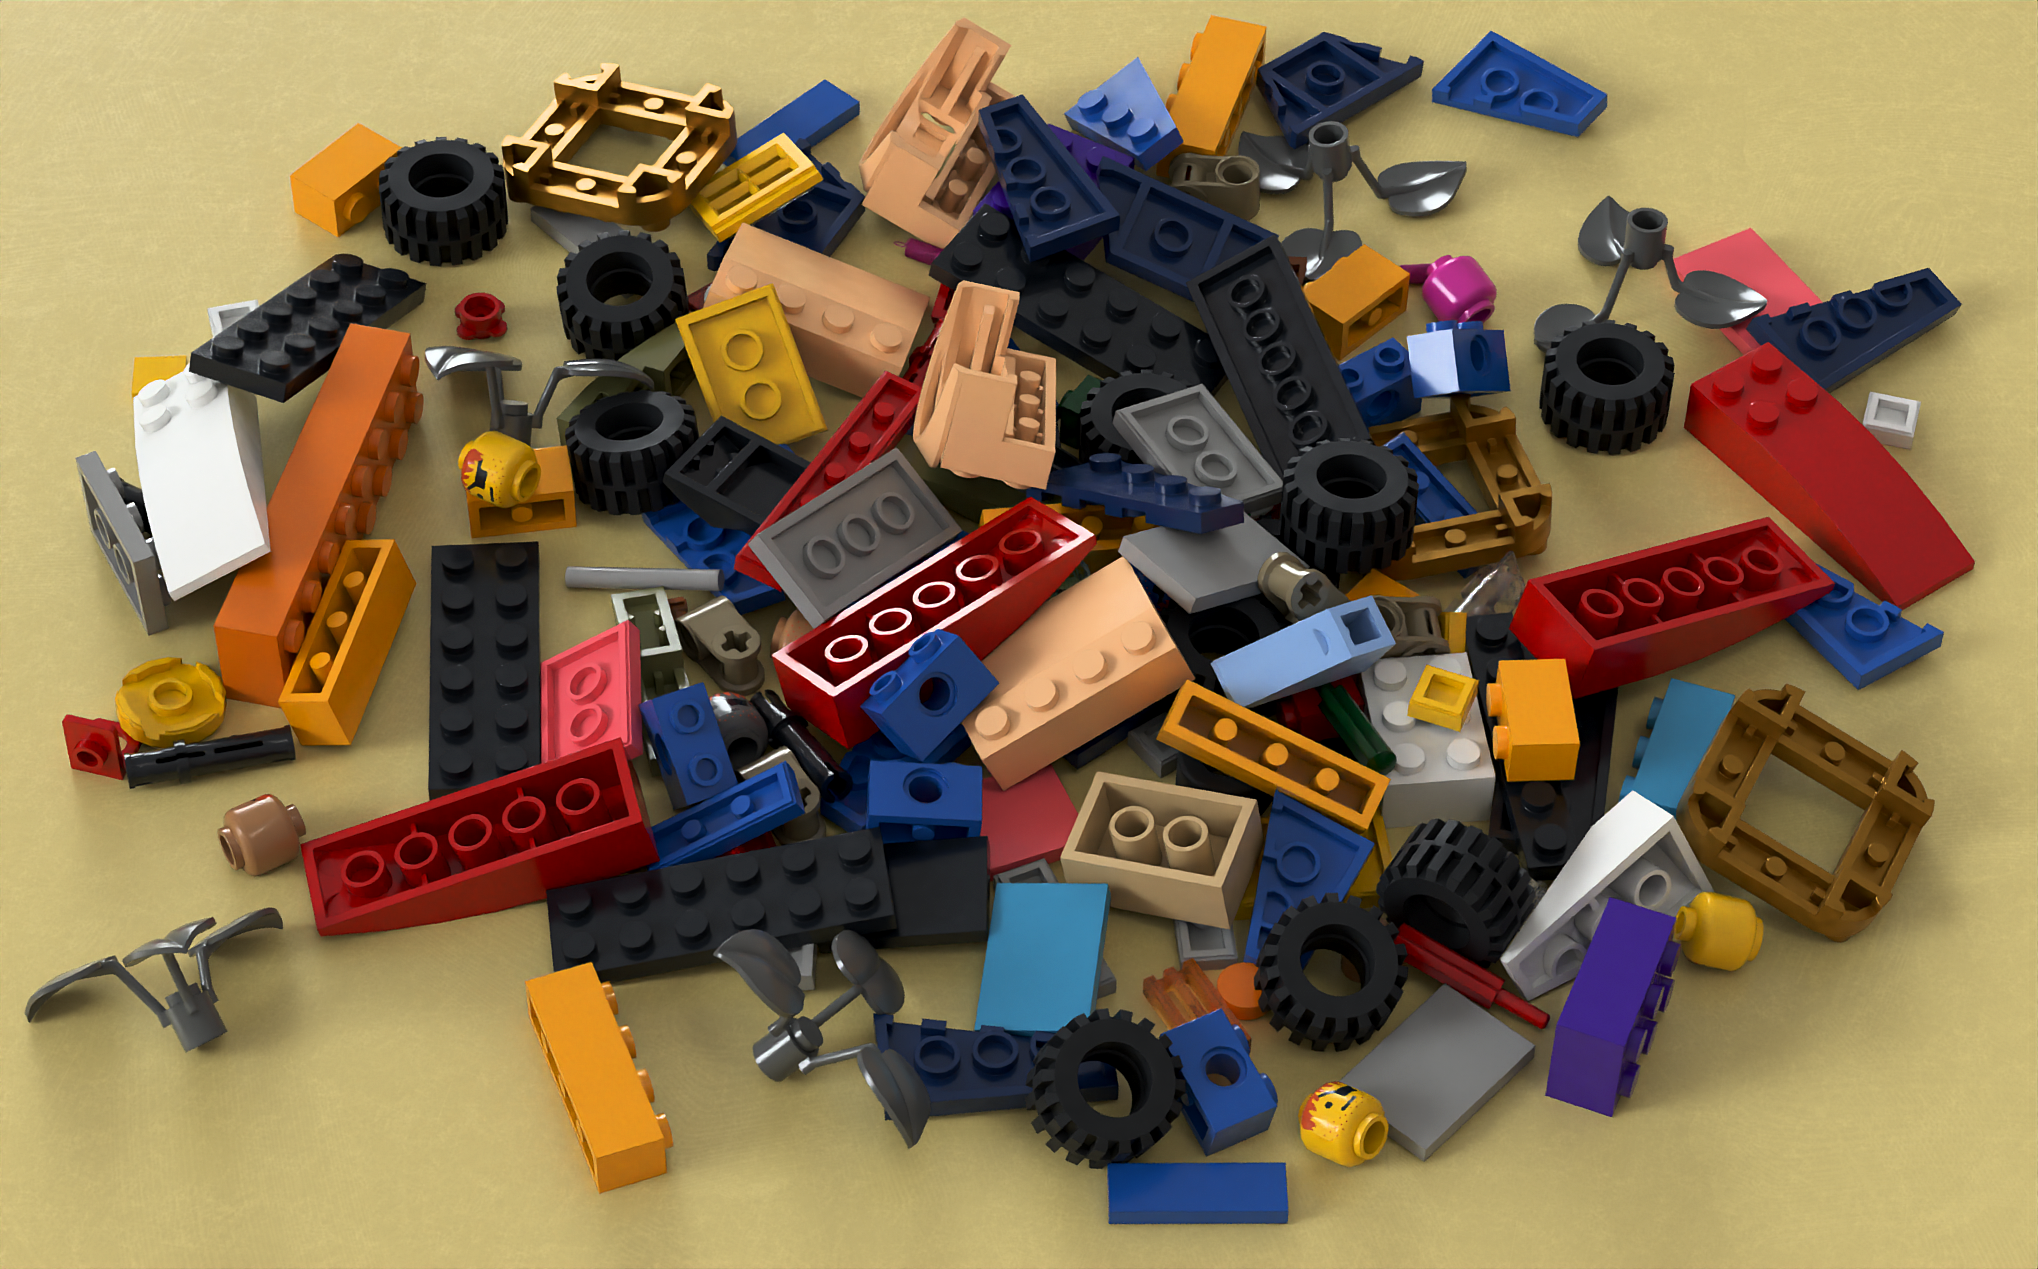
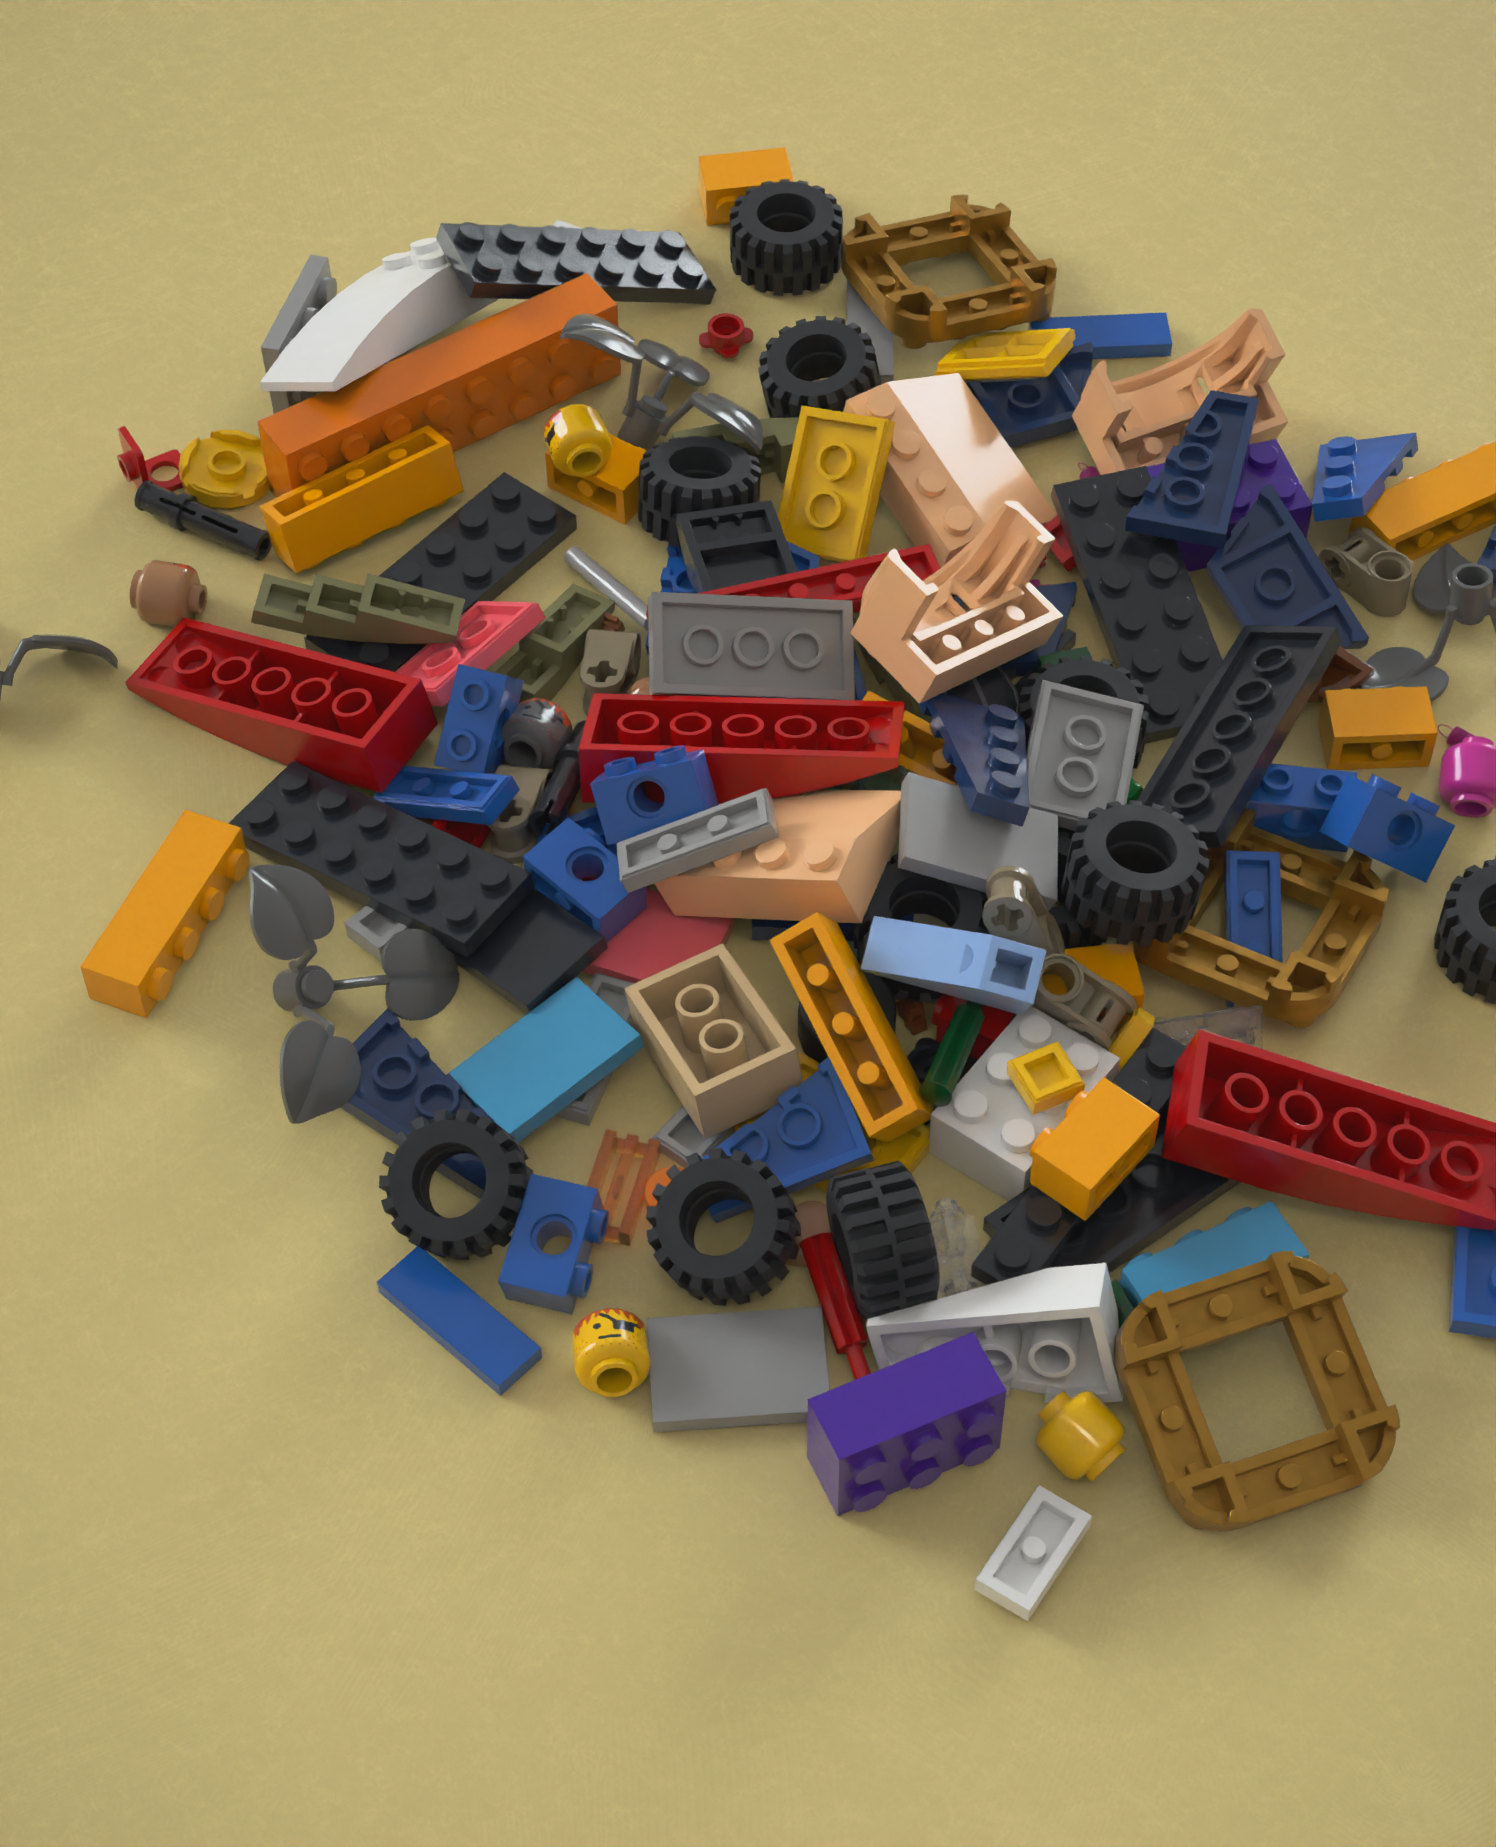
camera: 45 degrees right, 5 degrees up
(480, 724) = (368, 613): none -> olive slope
(1011, 700) = (697, 840): none -> light grey tile
(1773, 1032) = (1033, 1553): none -> white plate

